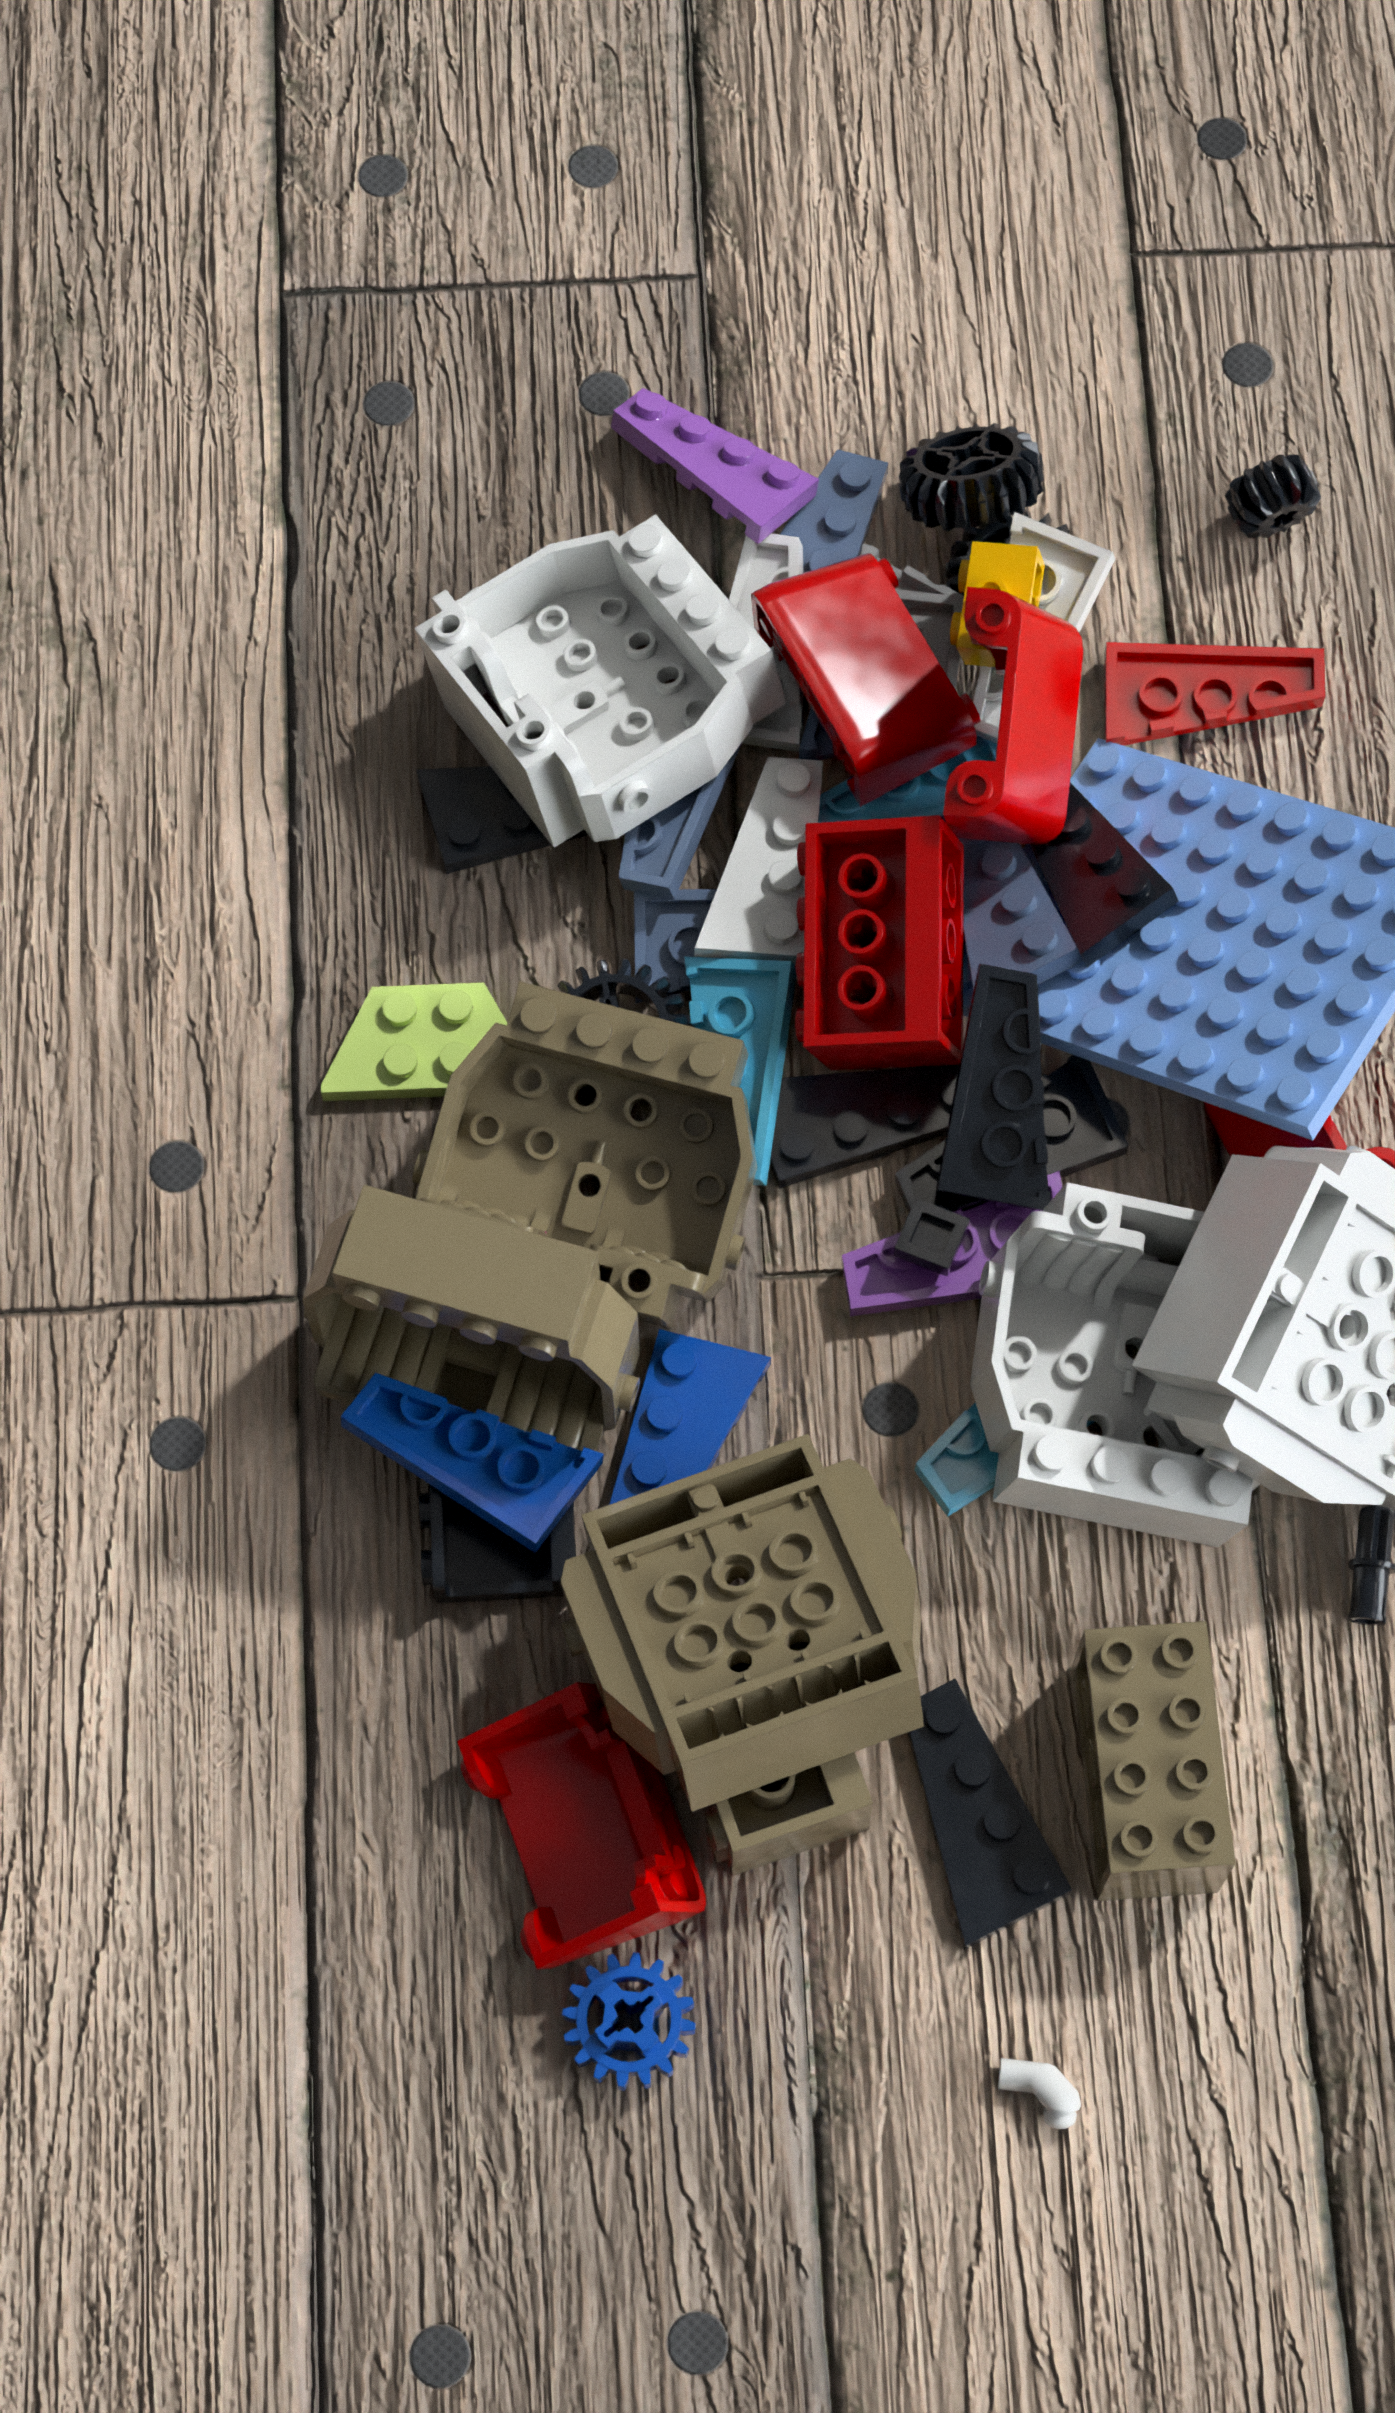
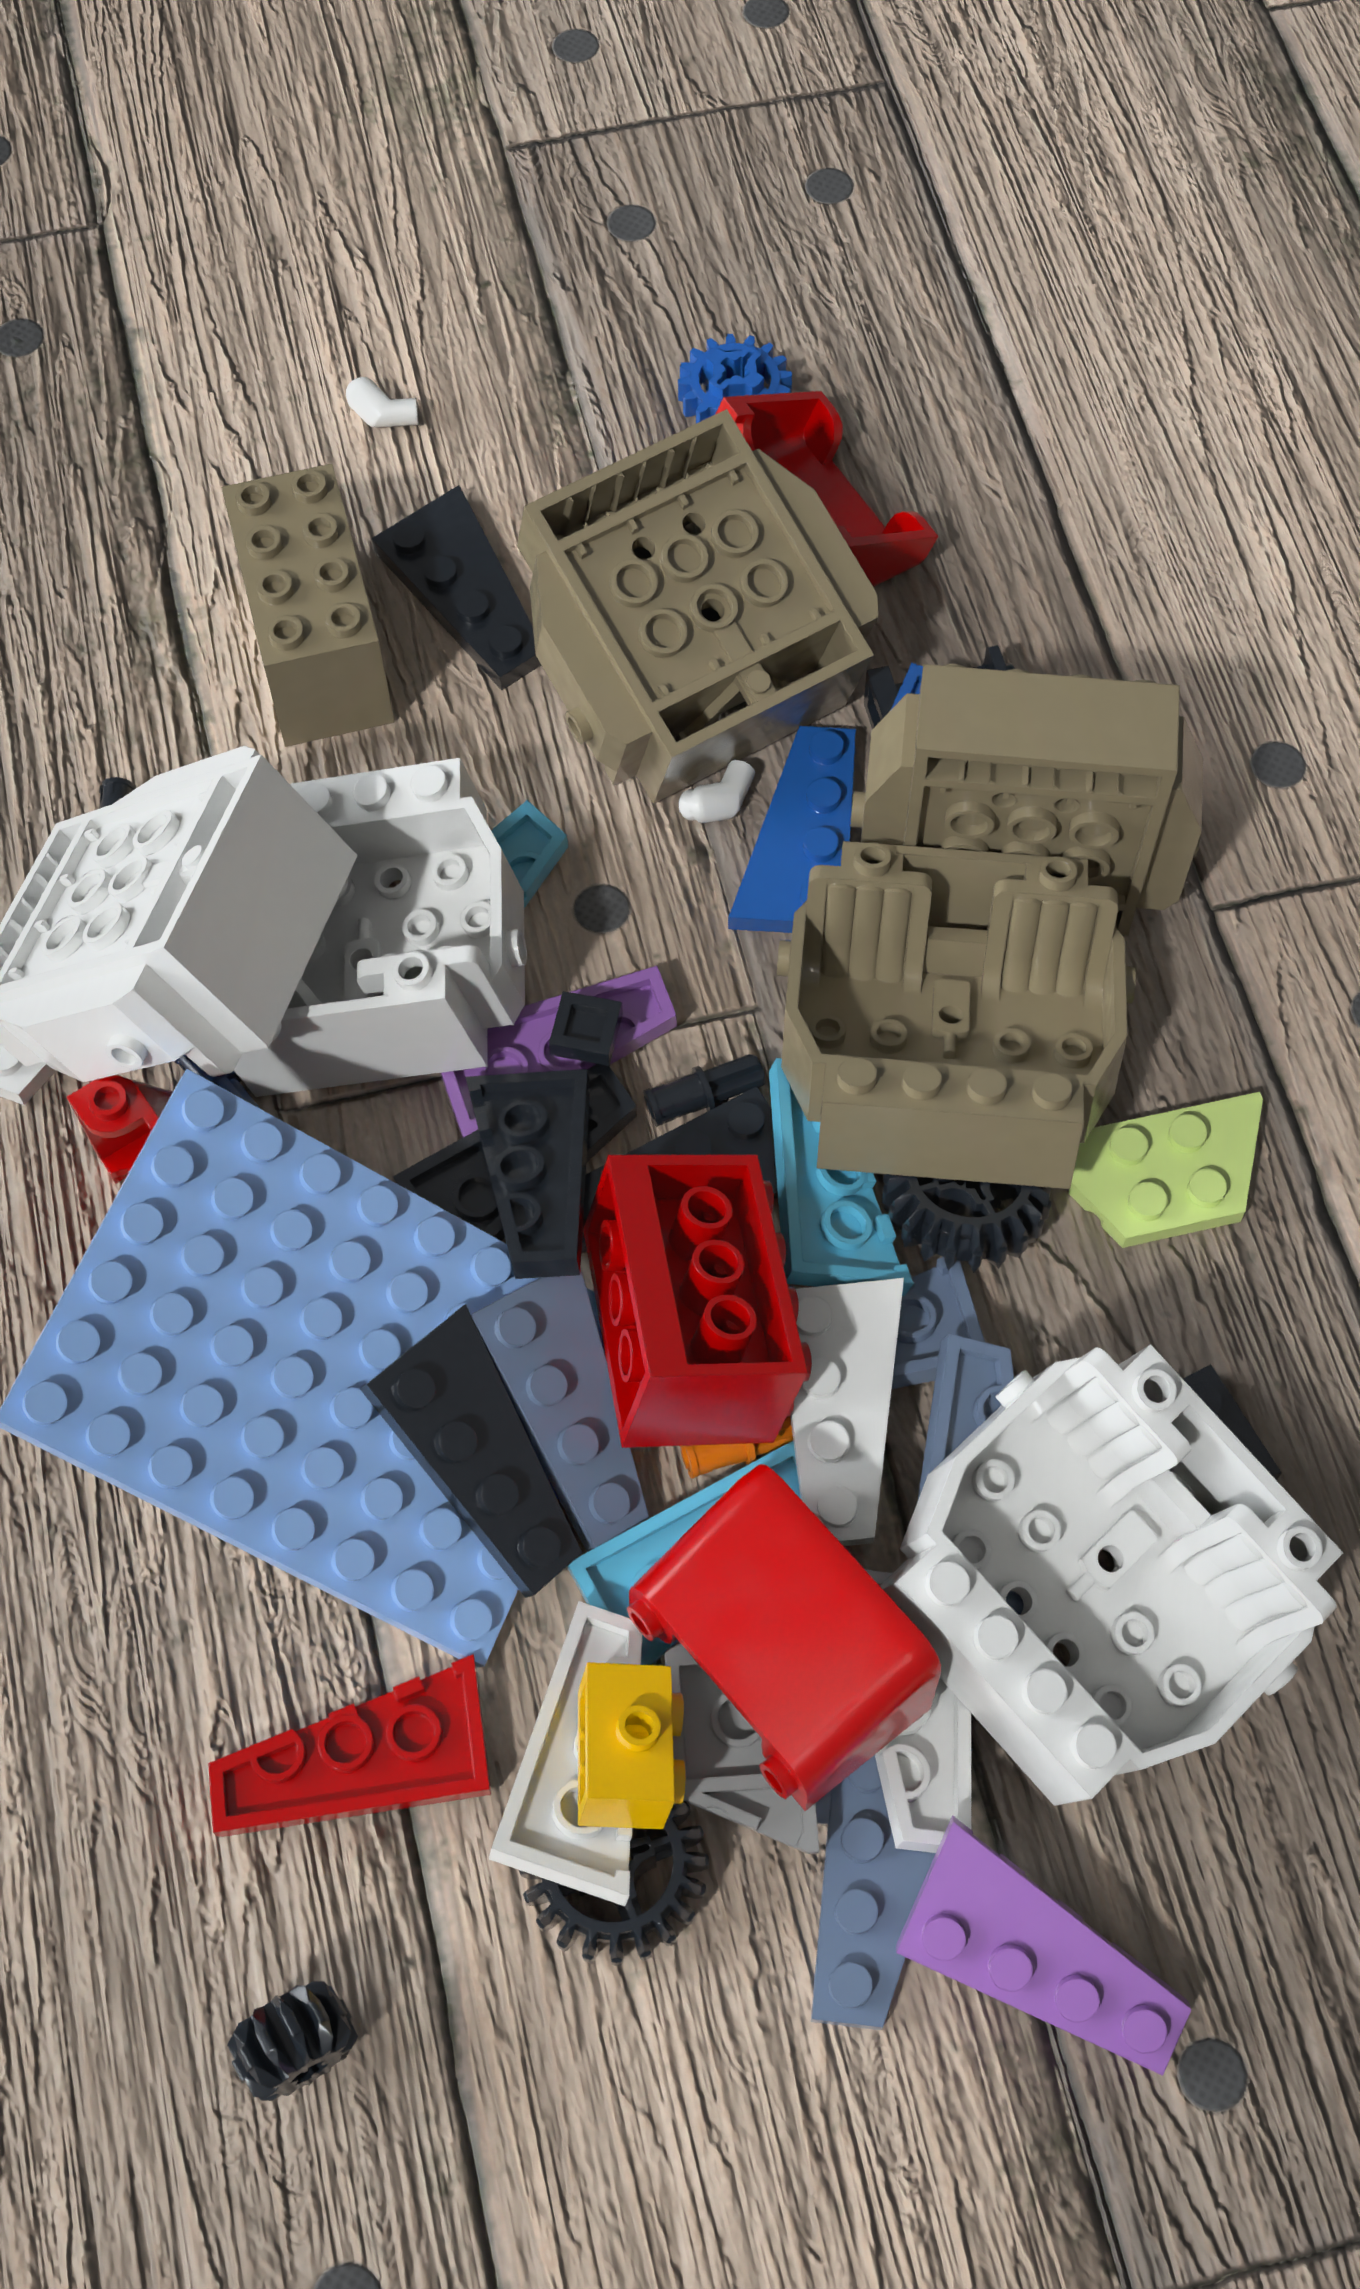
camera: 170 degrees right, 5 degrees down
(827, 1190) = (703, 1089): none -> black axle
(971, 477) = (716, 2013): black gear -> none
(1028, 784) = (577, 1603): windscreen -> none

